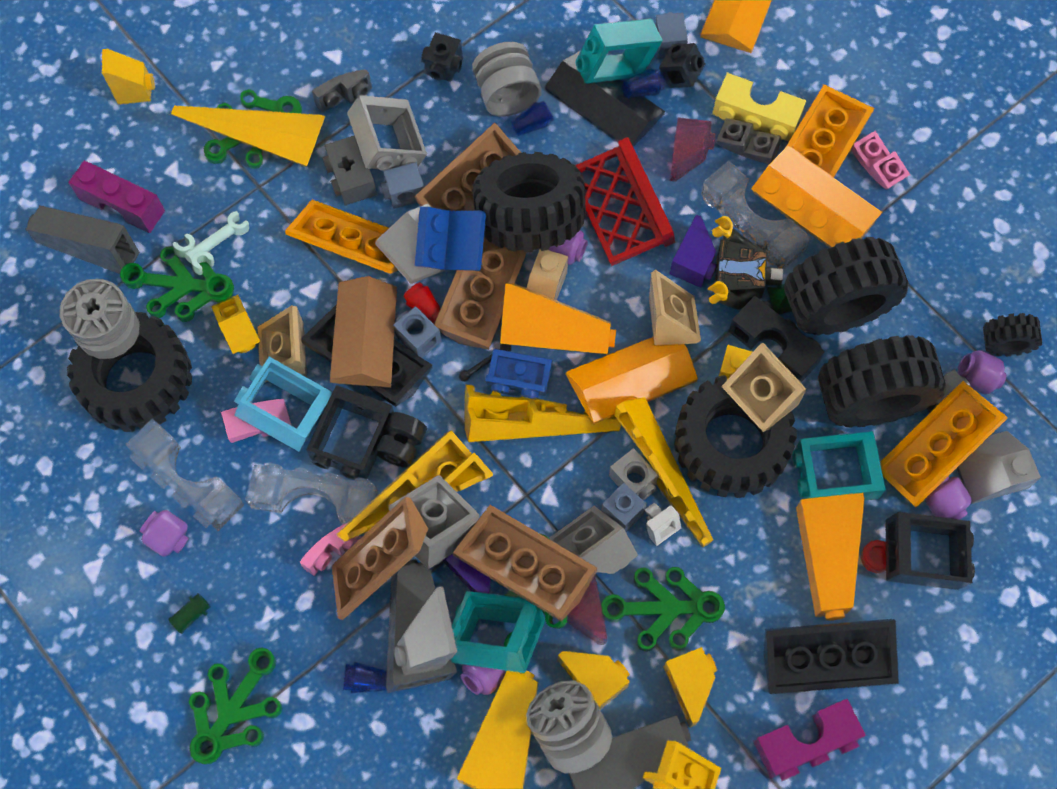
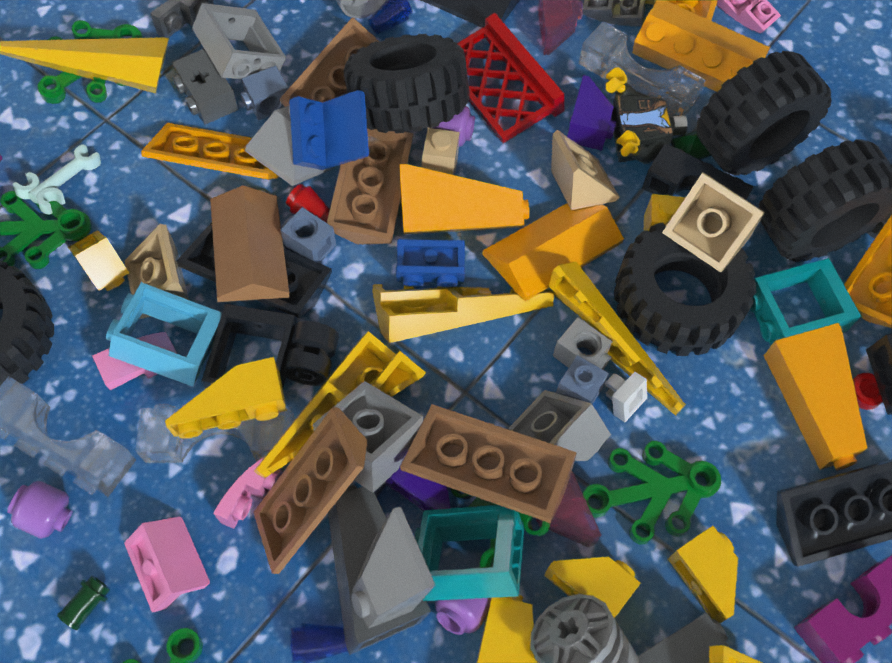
camera: 15 degrees left, 5 degrees down
(256, 592) = (165, 561): none -> bright pink panel
(334, 469) = (237, 396): none -> yellow slope
(465, 375) = (370, 274): black hinge -> none

